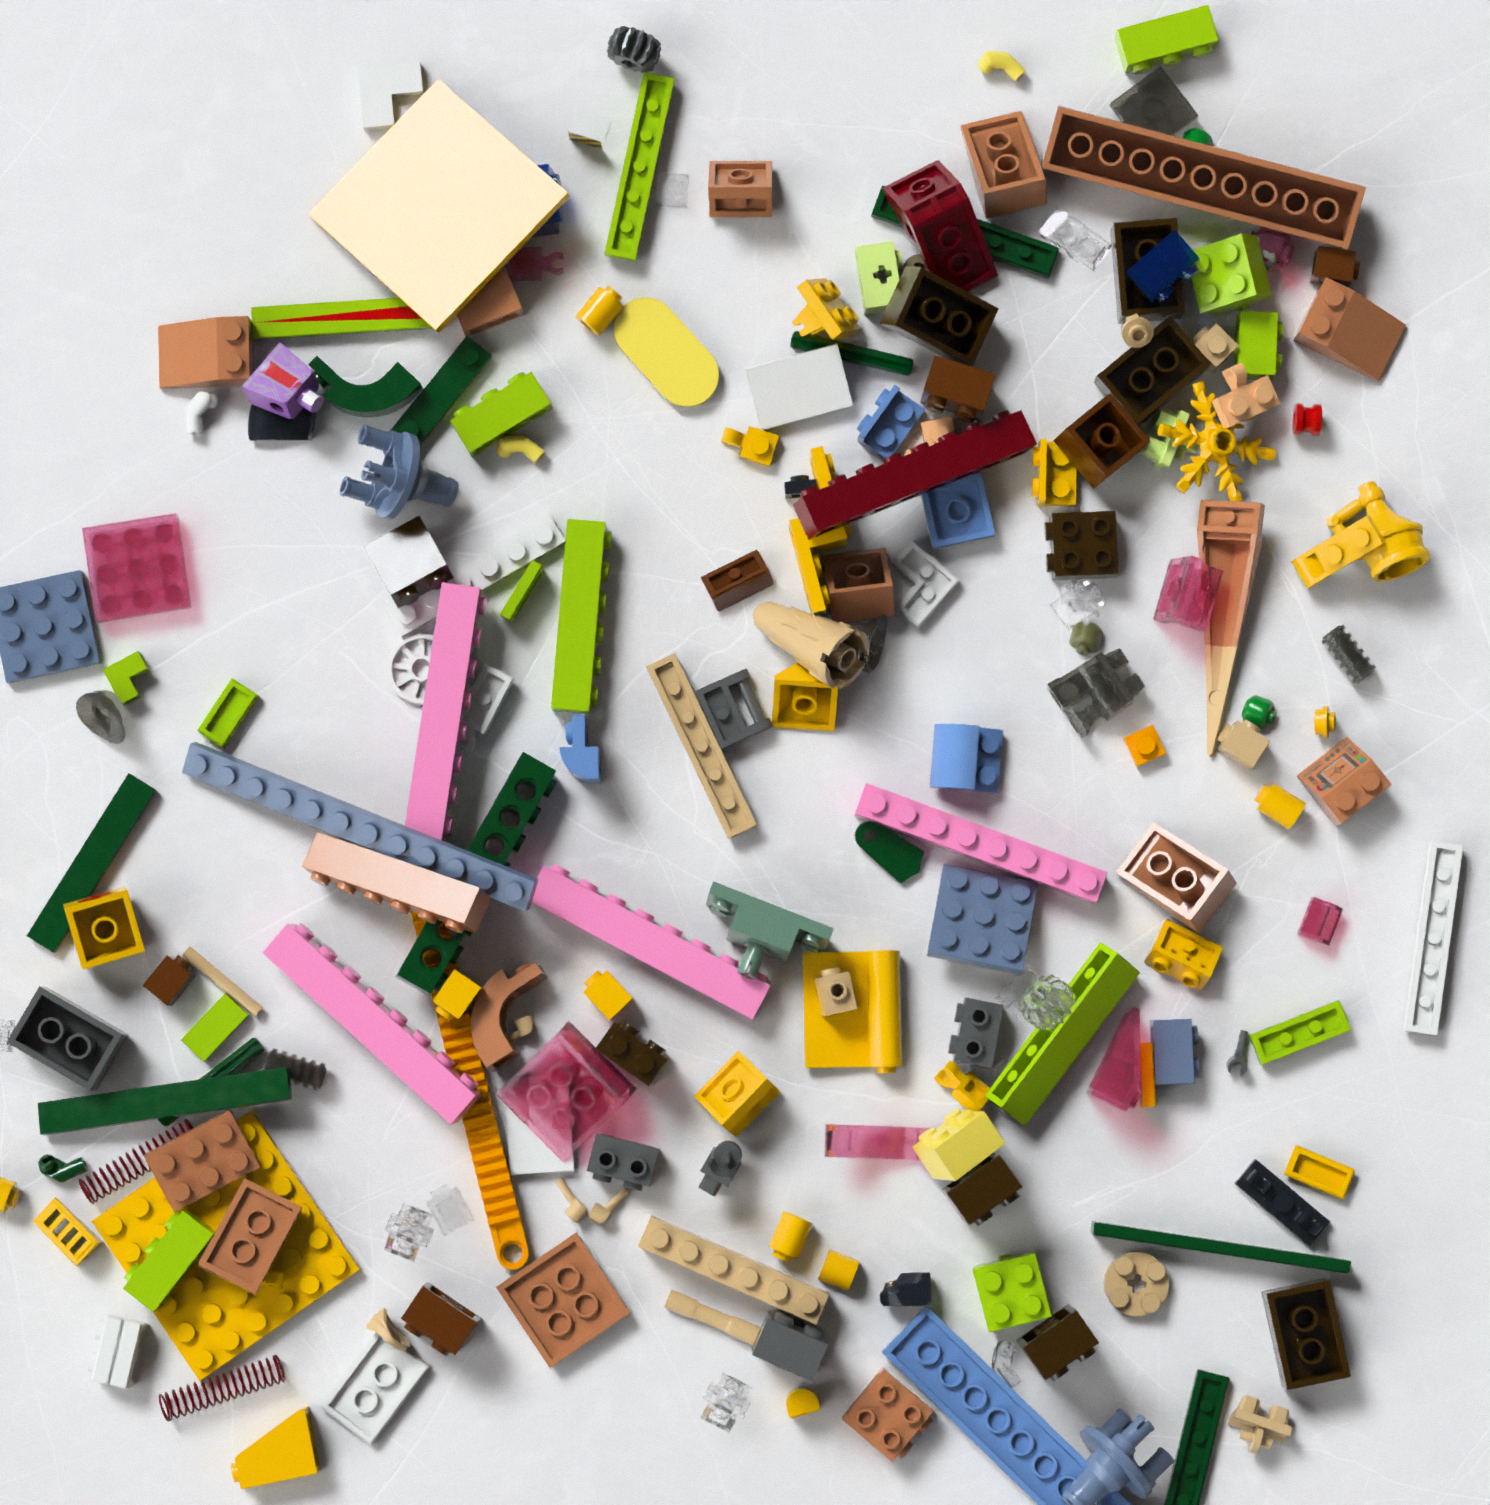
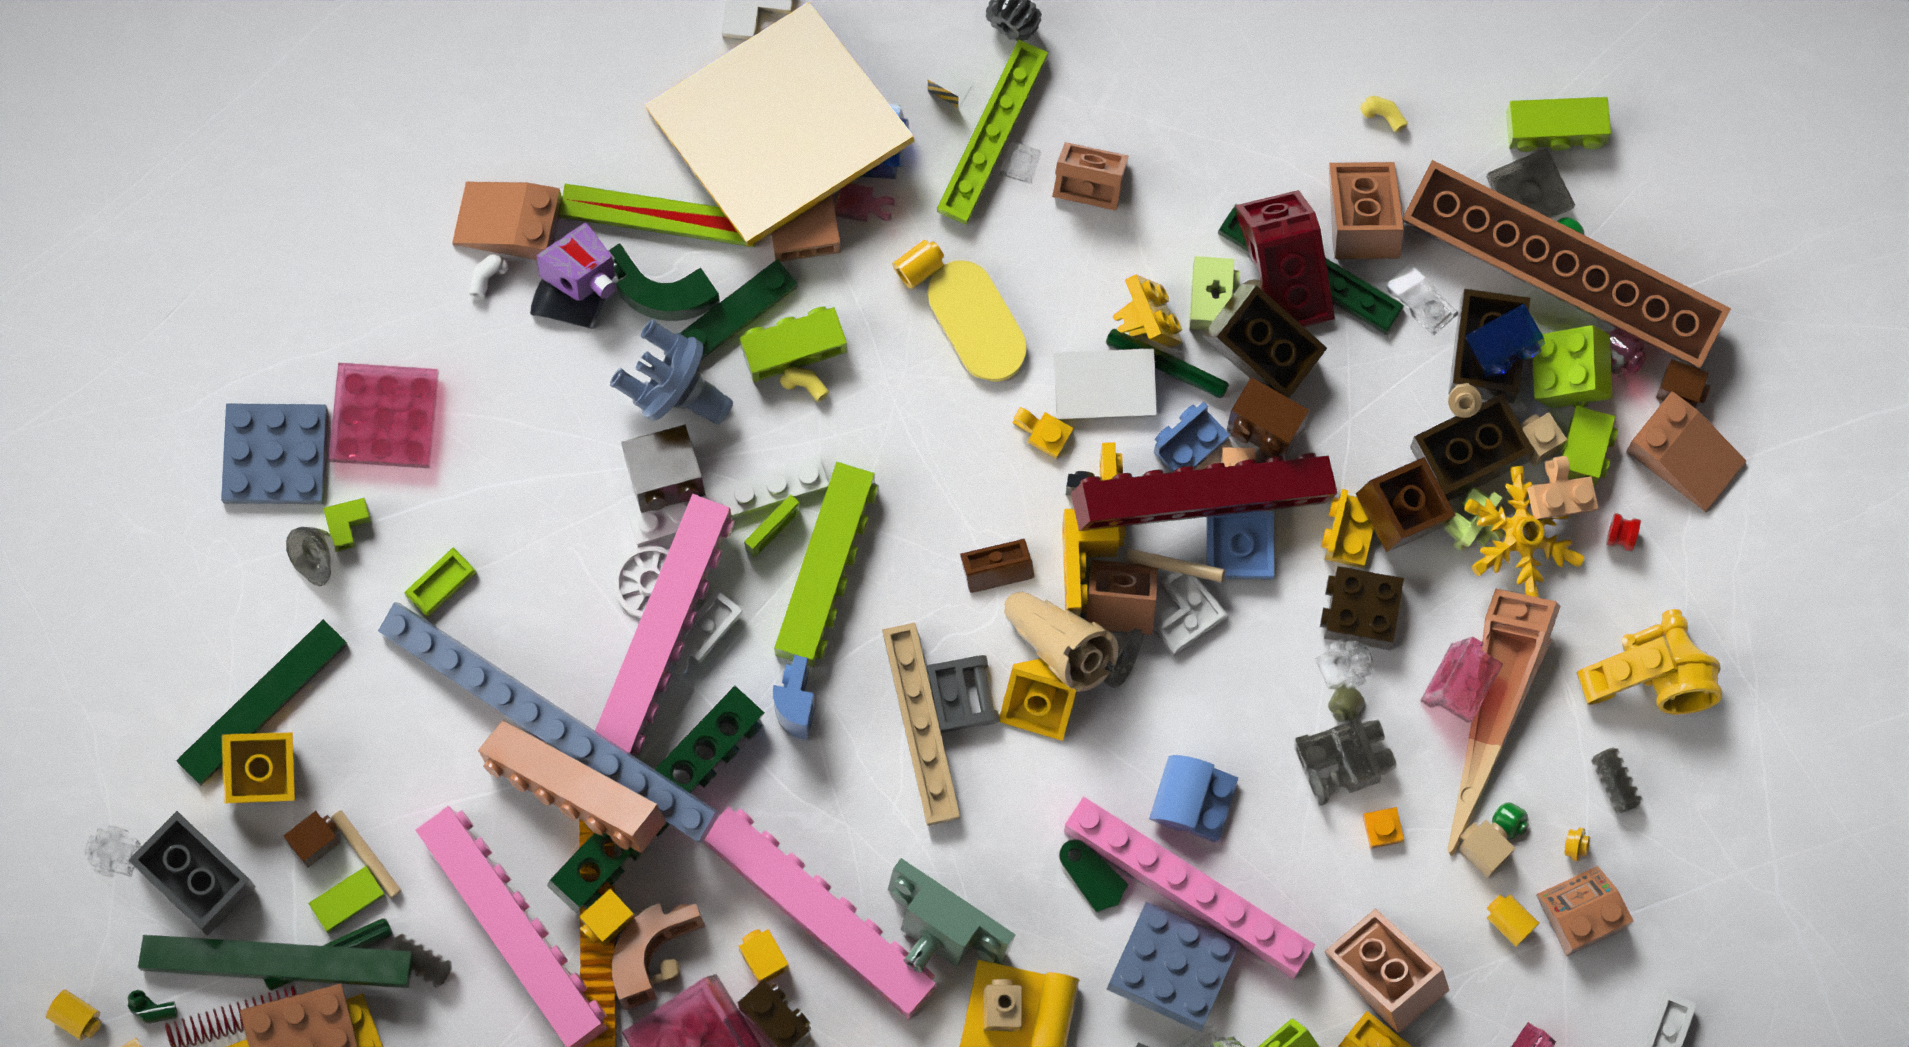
camera: 10 degrees right, 10 degrees down
(900, 544) = (1175, 565): none -> tan bar

